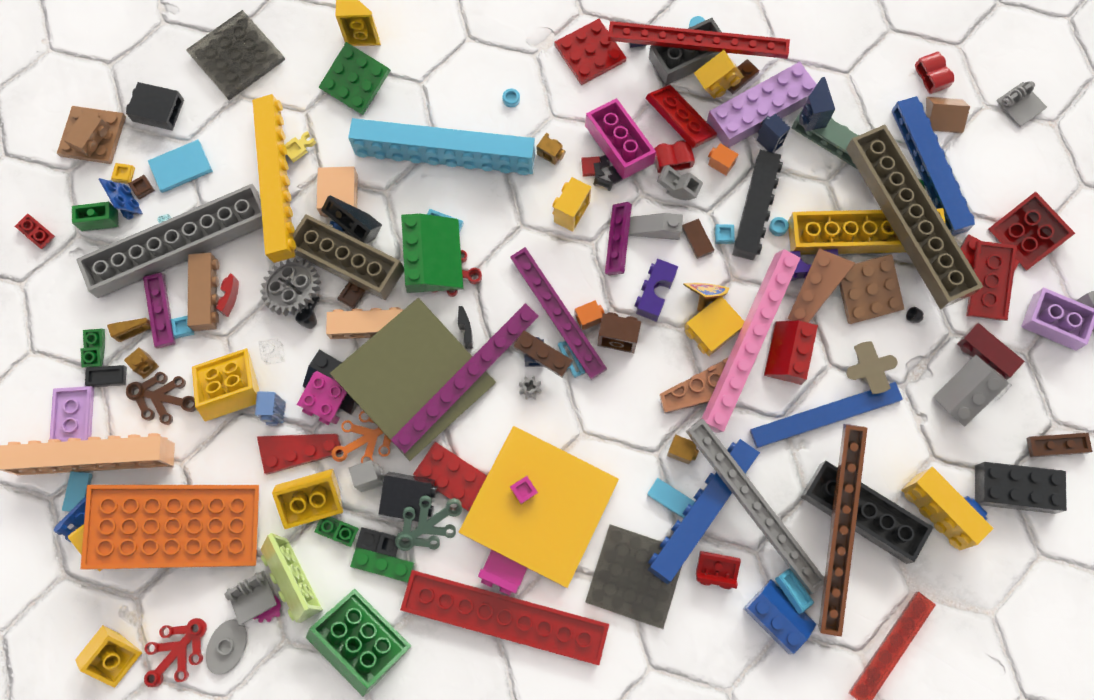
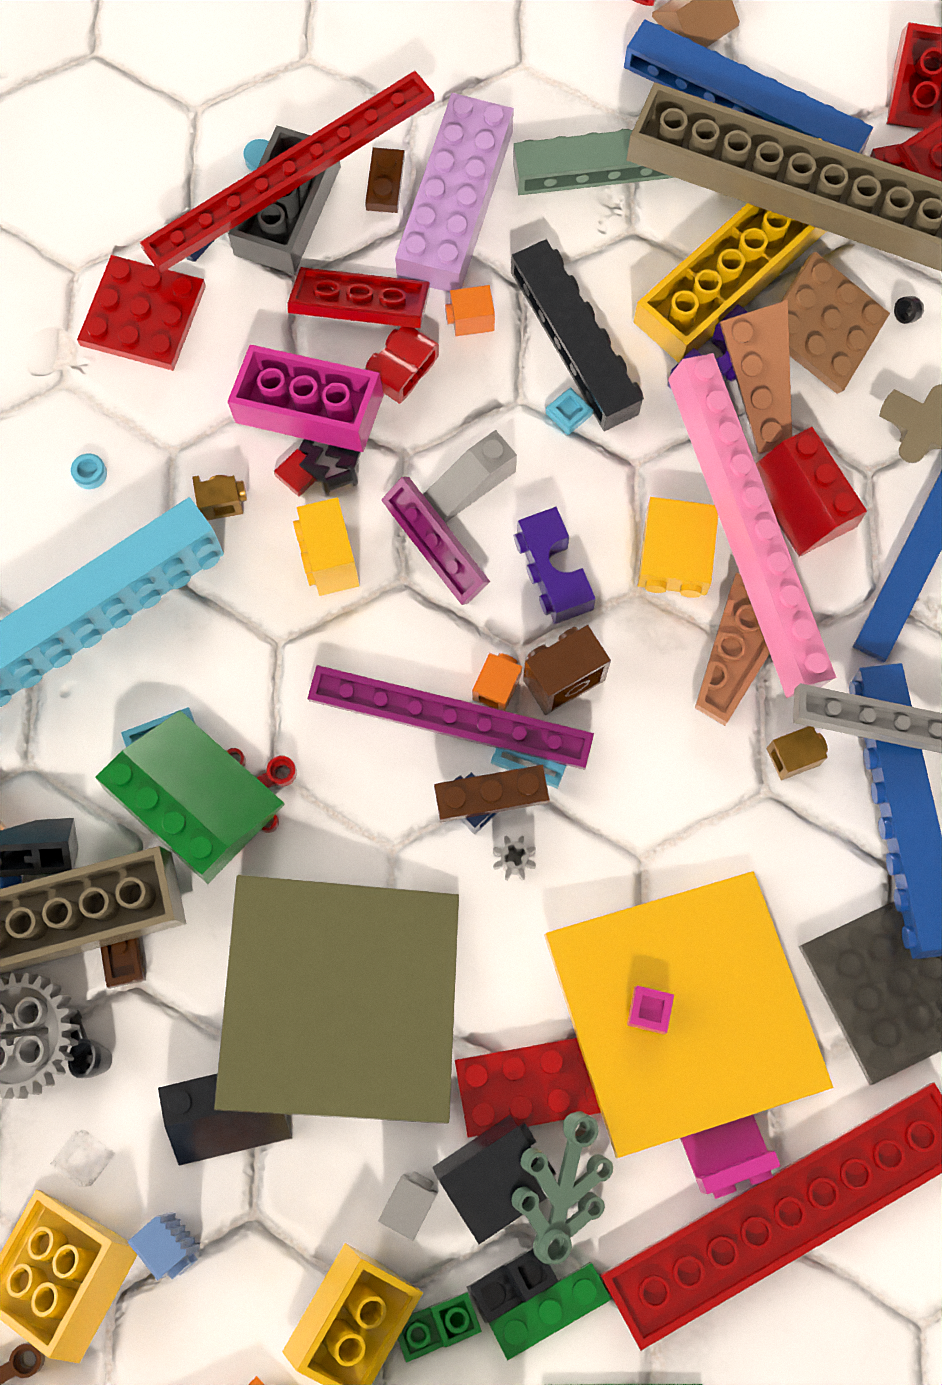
camera: 45 degrees left, 0 degrees up
(295, 450) = (255, 1276): red wing -> none
(322, 398) = (232, 1155): dark pink bracket -> none
(358, 323) = (180, 991): light nougat brick -> none
(369, 436) = (355, 1144): orange plant -> none
(464, 324) = (333, 851): black slope -> none
(464, 379) = (413, 935): magenta plate -> none
(669, 497) = (841, 833): medium azure tile -> none
(679, 186) = (451, 395): light grey brick -> none
(697, 238) = (541, 447): reddish brown tile -> none
(707, 292) = (625, 508): shield -> none
(719, 75) = (362, 196): yellow brick -> none
(772, 133) = (507, 218): dark blue brick -> none
(778, 226) = (629, 340): medium azure tile -> none
(818, 107) = (540, 131): dark blue slope -> none

